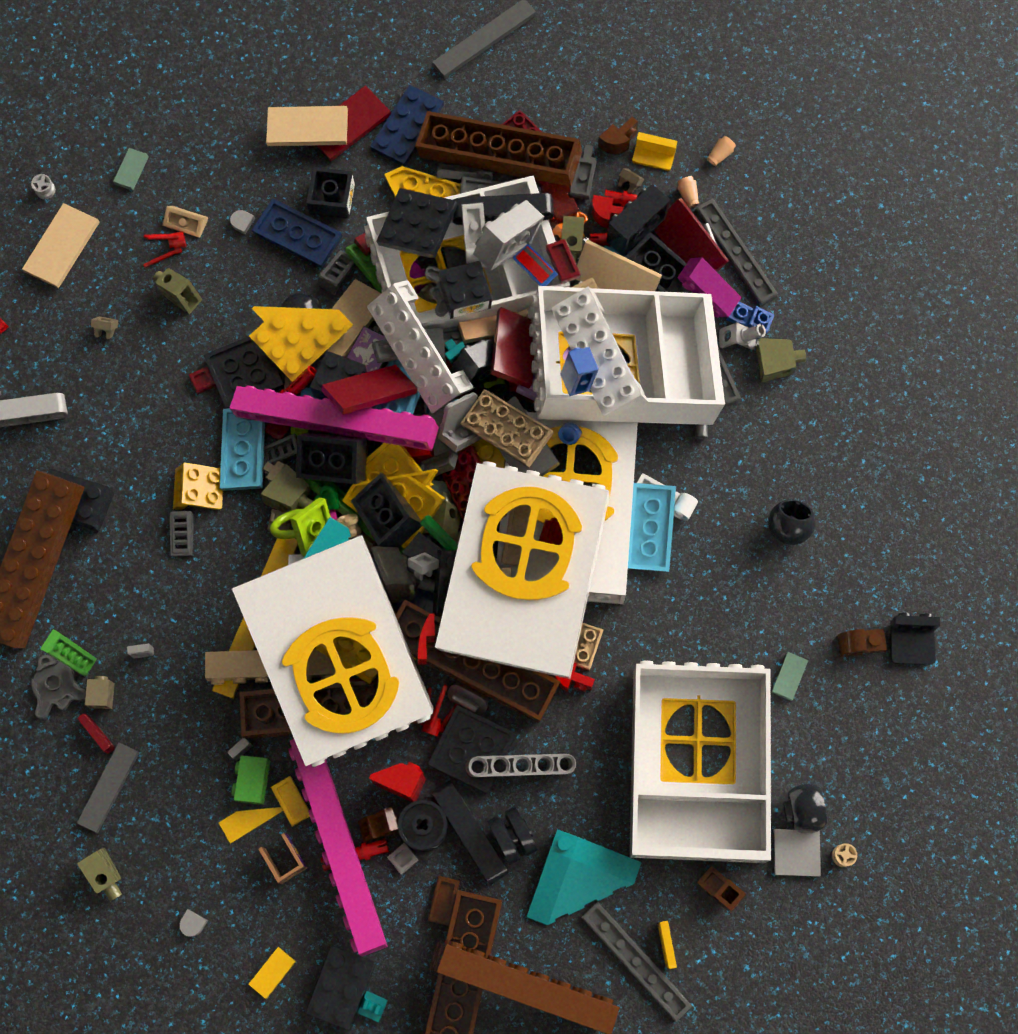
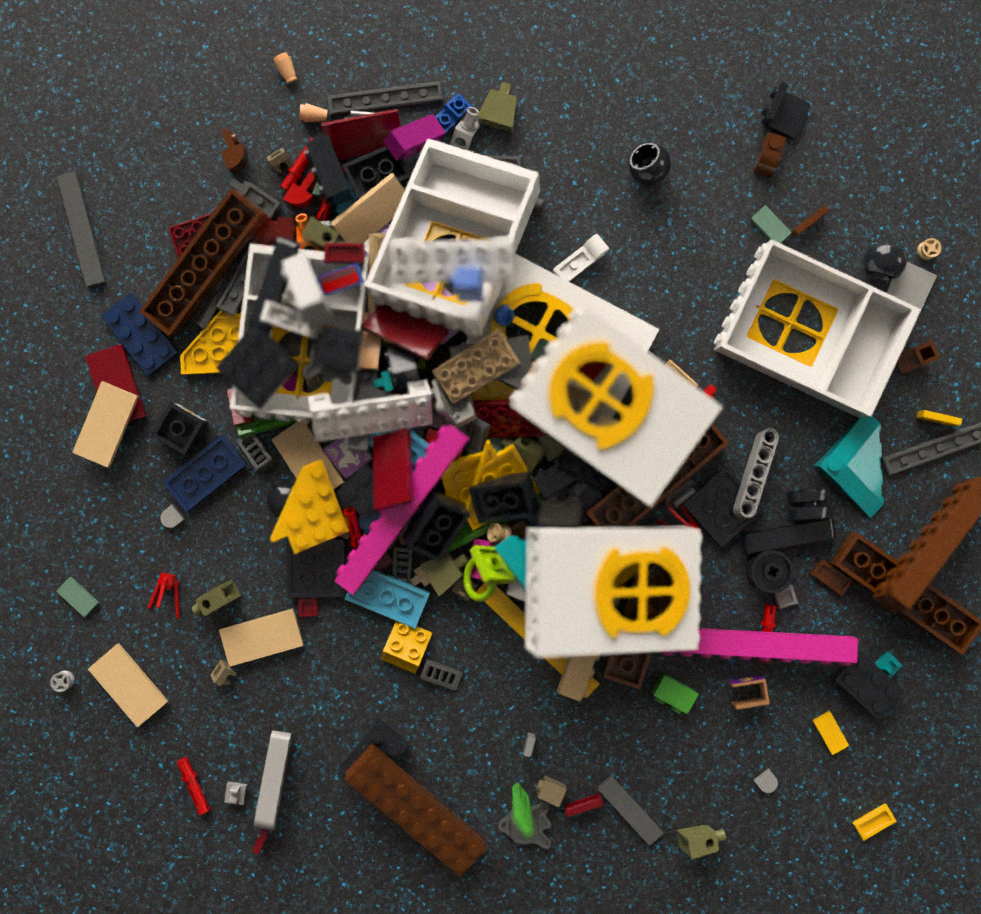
camera: 70 degrees left, 15 degrees up
(154, 347) = (261, 637): none -> tan tile
(184, 221) = (149, 567): tan slope -> none
(240, 749) = (645, 694): light grey tile -> none
(245, 821) = (702, 711): yellow sticker -> none
(291, 801) = (702, 667): yellow tile -> none
(330, 493) = (466, 541): green tile -> none
(378, 825) = (754, 606): reddish brown brick -> none
(401, 780) = (732, 576): red slope -> none
(423, 564) = (566, 486): light grey tile -> none
(427, 636) = (630, 507): red slope -> none
(438, 533) = (544, 460): green axle -> none
(651, 527) = (603, 280): medium azure plate -> none
(654, 151) = (261, 126): yellow panel -> none
(812, 713) = (809, 221): none -> reddish brown tile

